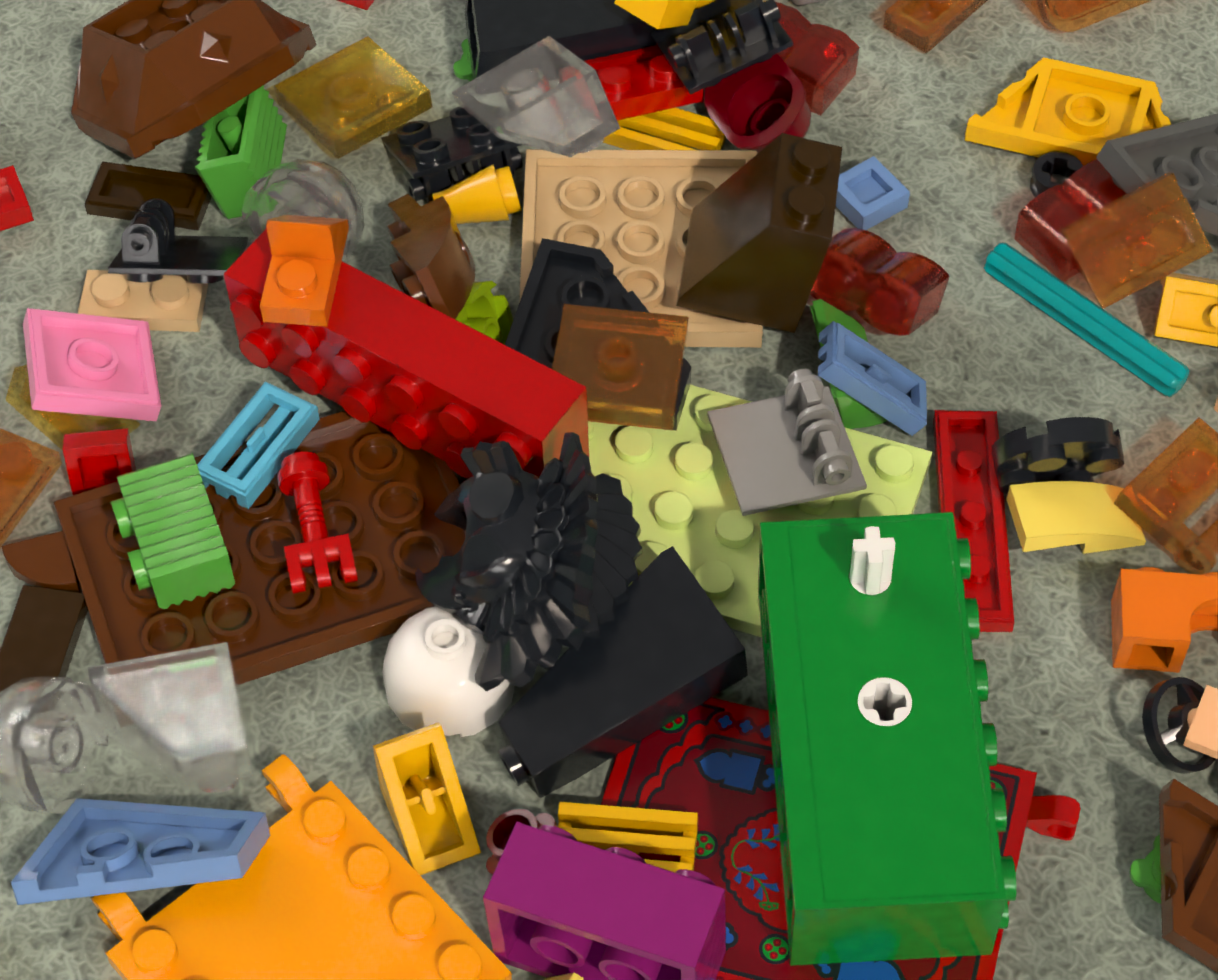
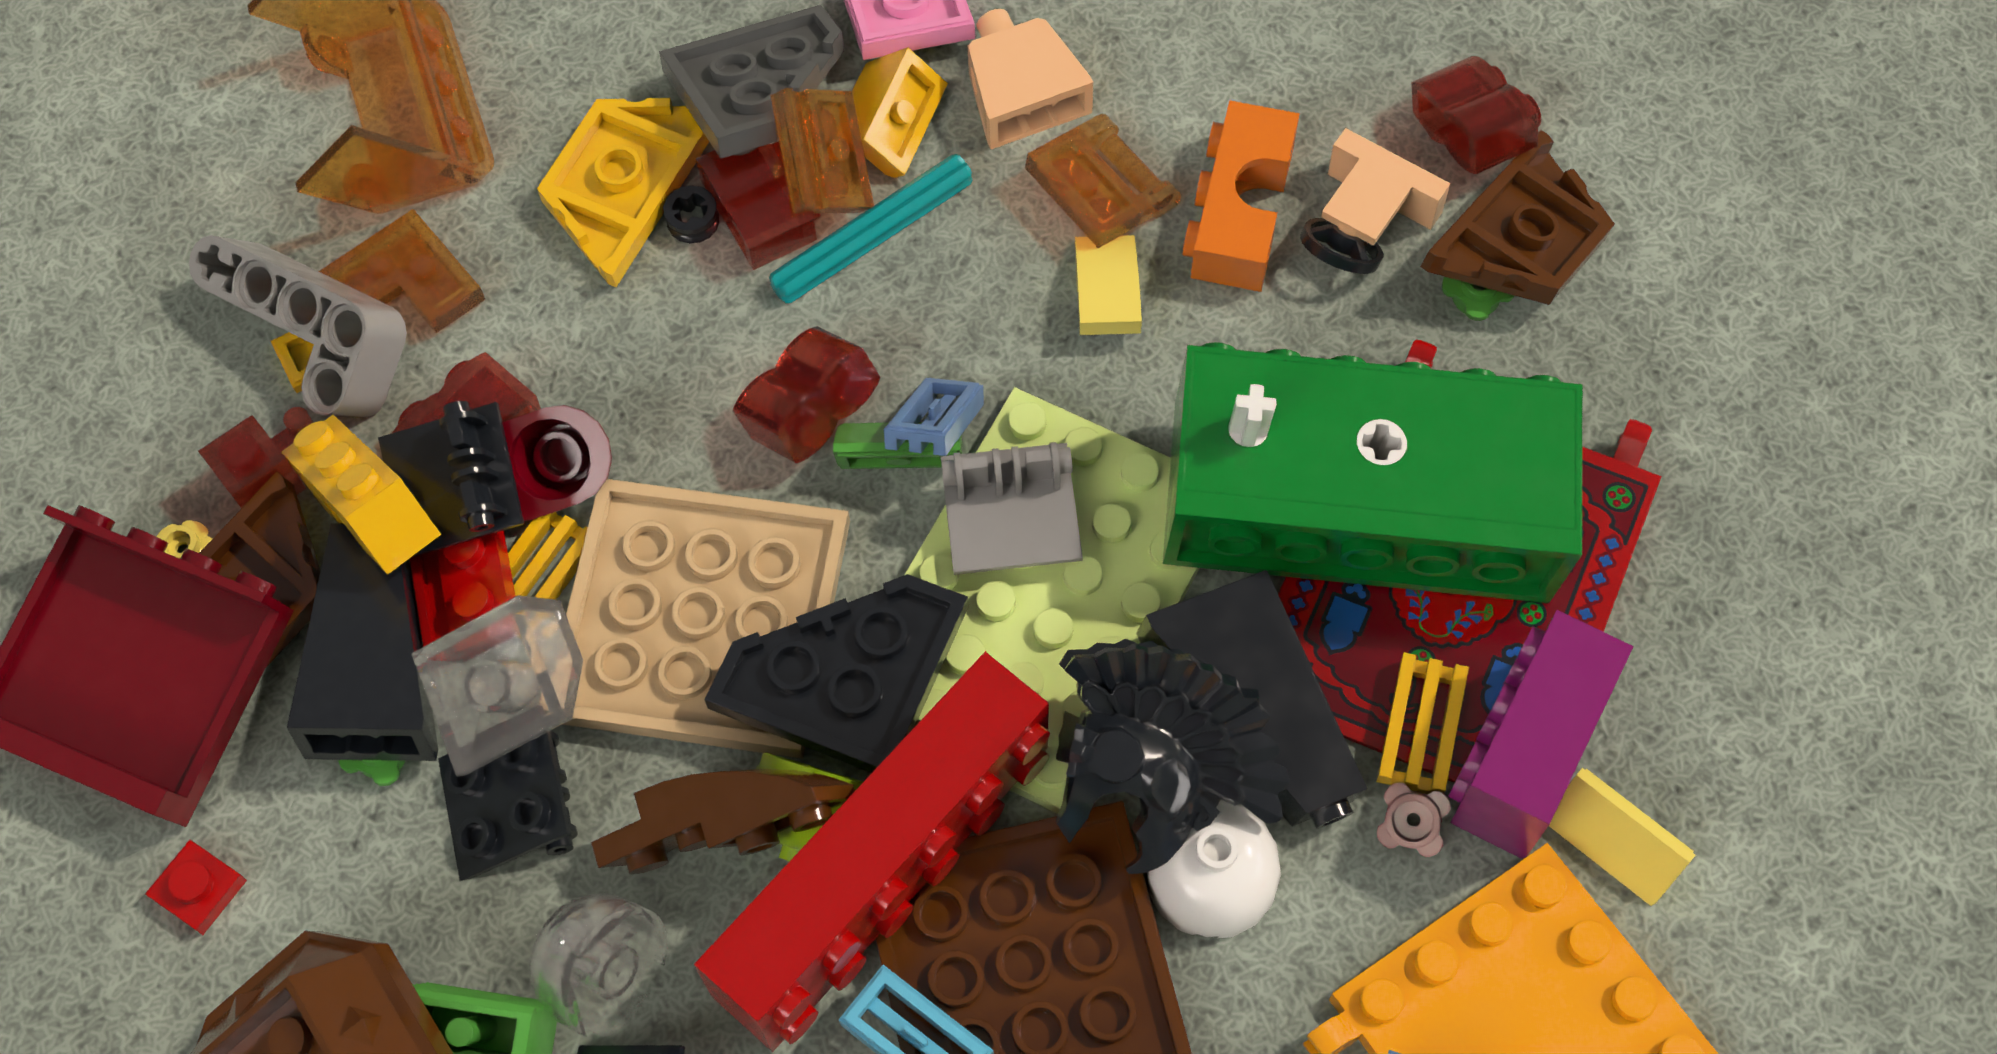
camera: 80 degrees left, 10 degrees up
(302, 269) = (775, 923): orange slope -> none
(304, 478) = (980, 984): red hinge -> none
(353, 97) = (409, 892): clear yellow plate -> none
(425, 799) = (1366, 901): yellow slope -> none
(483, 196) = (594, 773): yellow cone -> none
(625, 362) = (903, 638): clear orange plate -> none
(763, 235) = (766, 470): dark brown slope -> none
(870, 194) = (676, 386): medium blue plate -> none
(972, 492) = (1074, 368): red tile -> none
(1072, 449) = (1063, 273): black plate -> none

